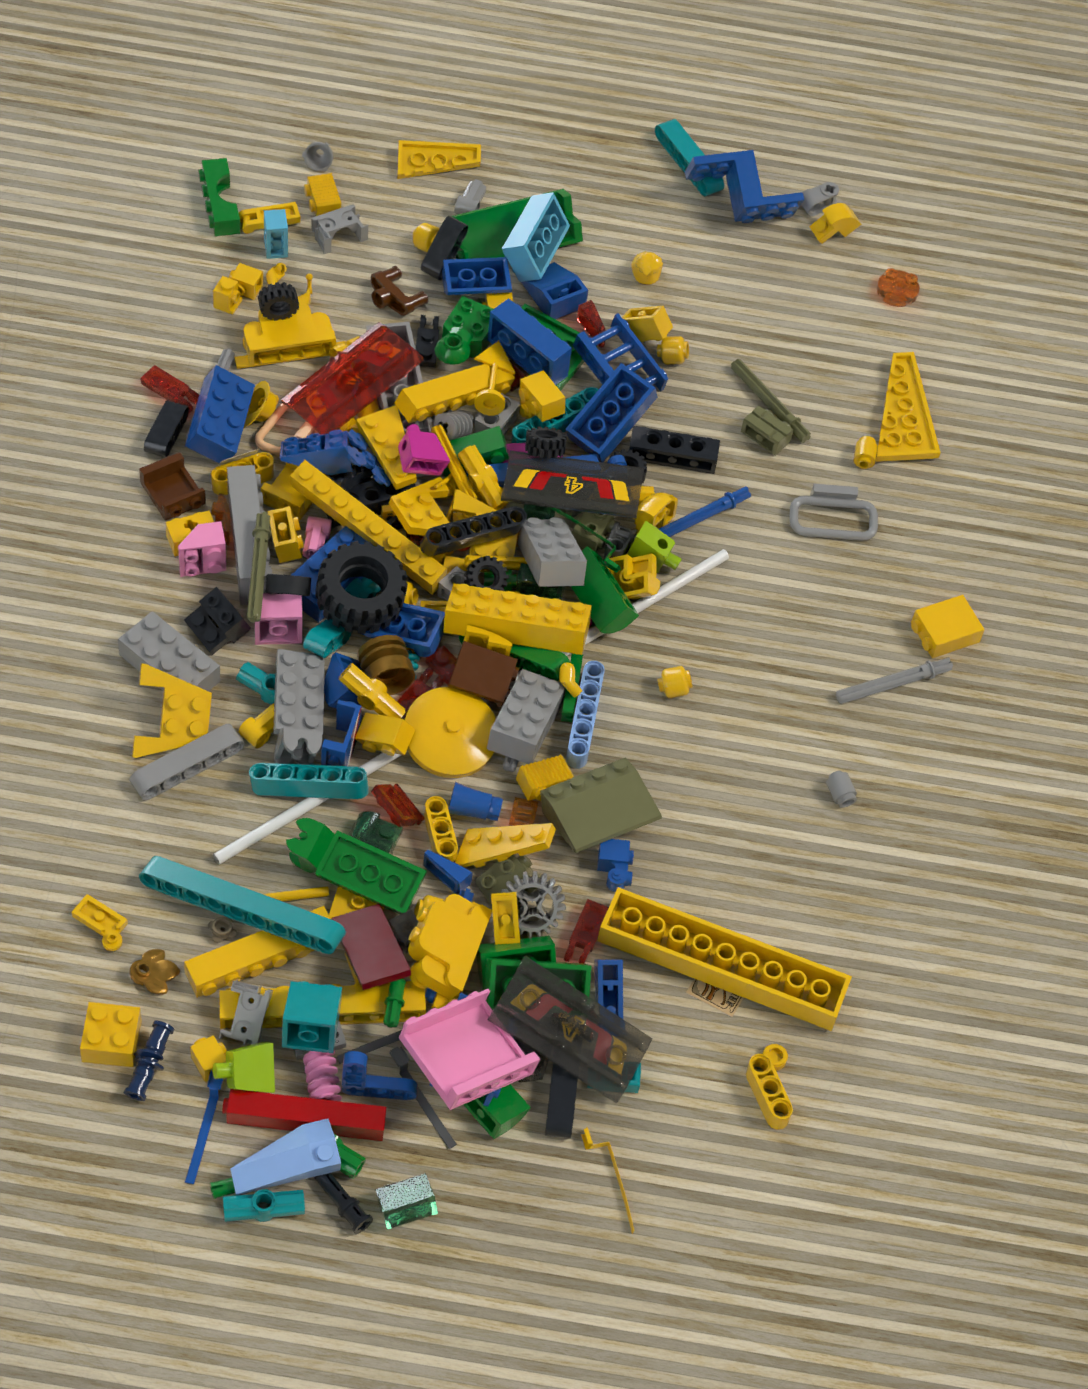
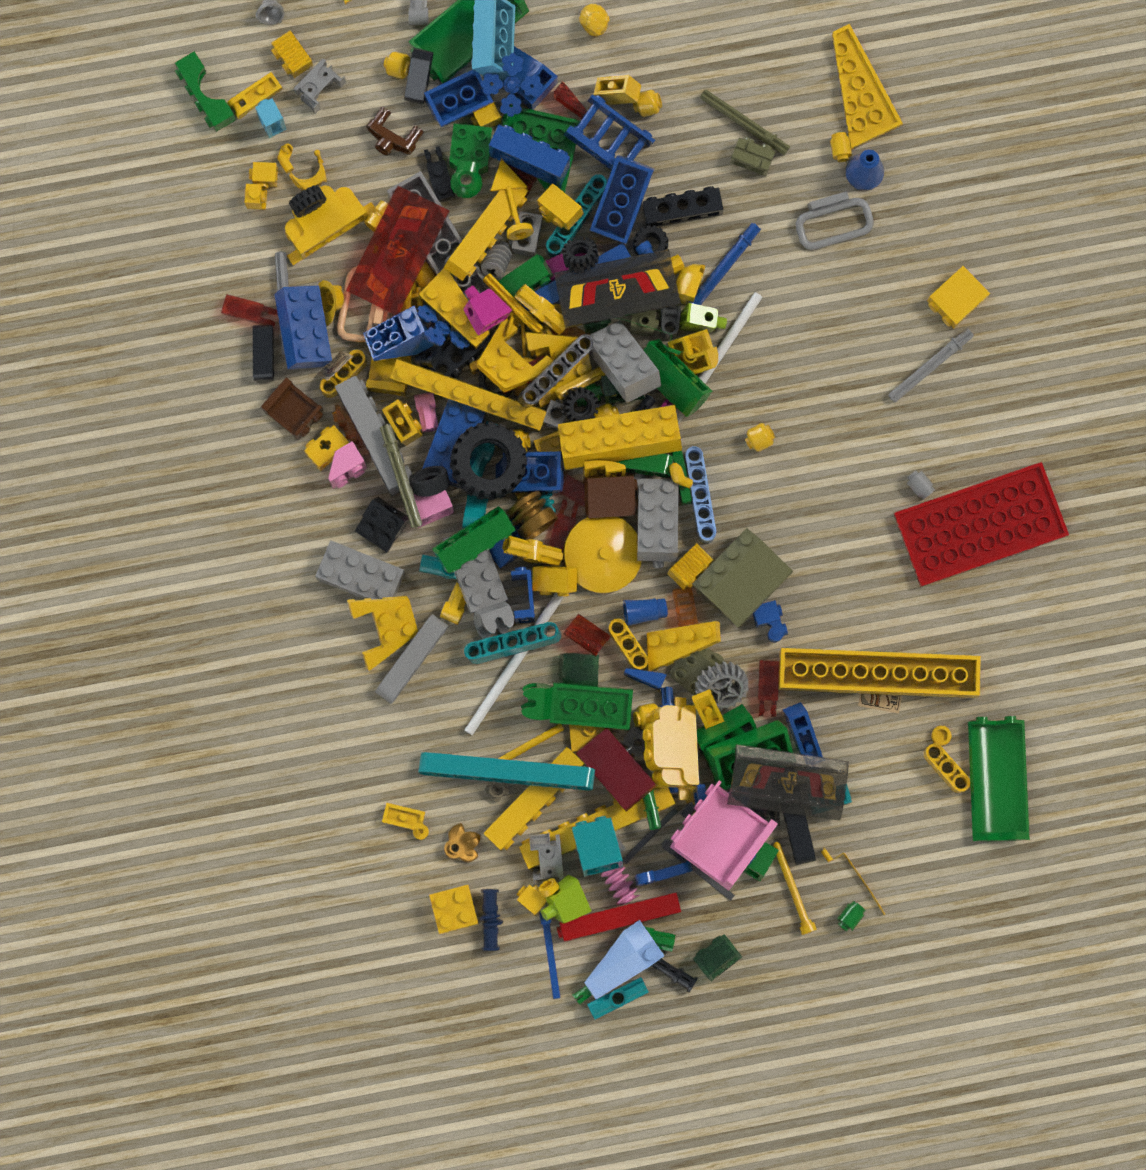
camera: 15 degrees left, 25 degrees up
(234, 1043) = (548, 887): none -> yellow tile
(310, 652) = (473, 539): none -> green brick
(531, 1209) = (806, 924): none -> yellow piece
(537, 278) = (511, 84): none -> blue plant
(590, 1215) = (851, 916): none -> green brick
(828, 1127) = (998, 779): none -> green cylinder
(886, 477) = (865, 170): none -> blue cone
(898, 852) = (981, 524): none -> red plate

